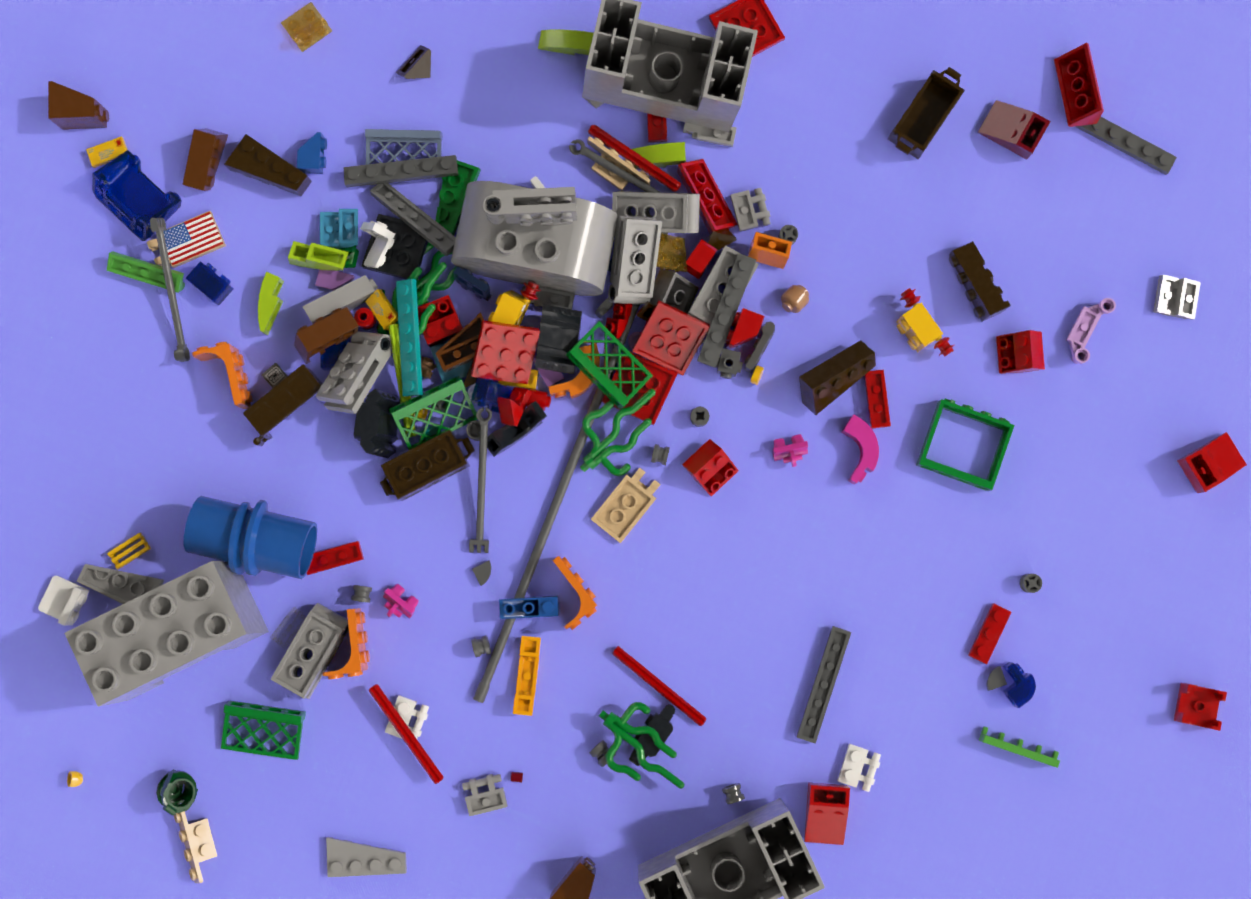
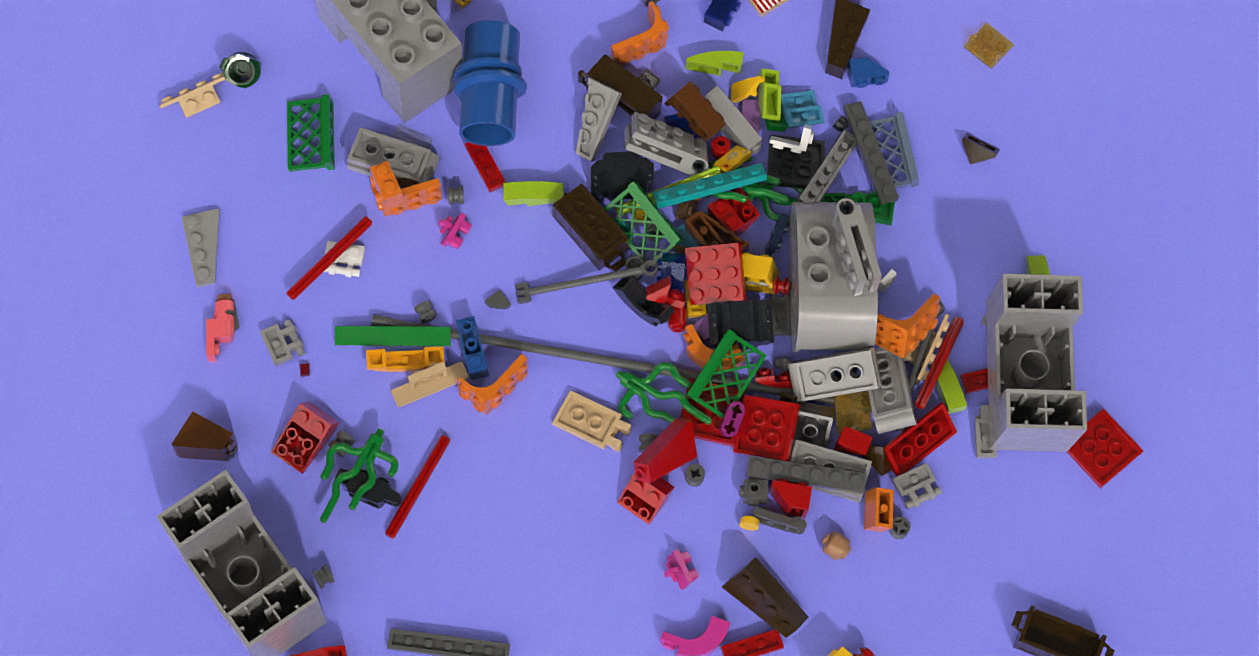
camera: 70 degrees right, 15 degrees down
(301, 430) = (598, 112): none -> light grey wing
(305, 279) = (745, 88): none -> yellow slope
(346, 664) = (386, 184): none -> orange brick
(362, 193) = (840, 124): none -> black hinge
(375, 515) = (532, 192): none -> lime slope
(457, 852) = (222, 326): none -> coral plate
(500, 683) = (392, 336): none -> green tile
(557, 660) = (428, 381): none -> tan bracket
(587, 788) = (304, 436): none -> red slope
(612, 183) = (904, 335): none -> orange bracket
(657, 366) = (736, 421): none -> magenta beam
(679, 439) = (667, 452): none -> red slope

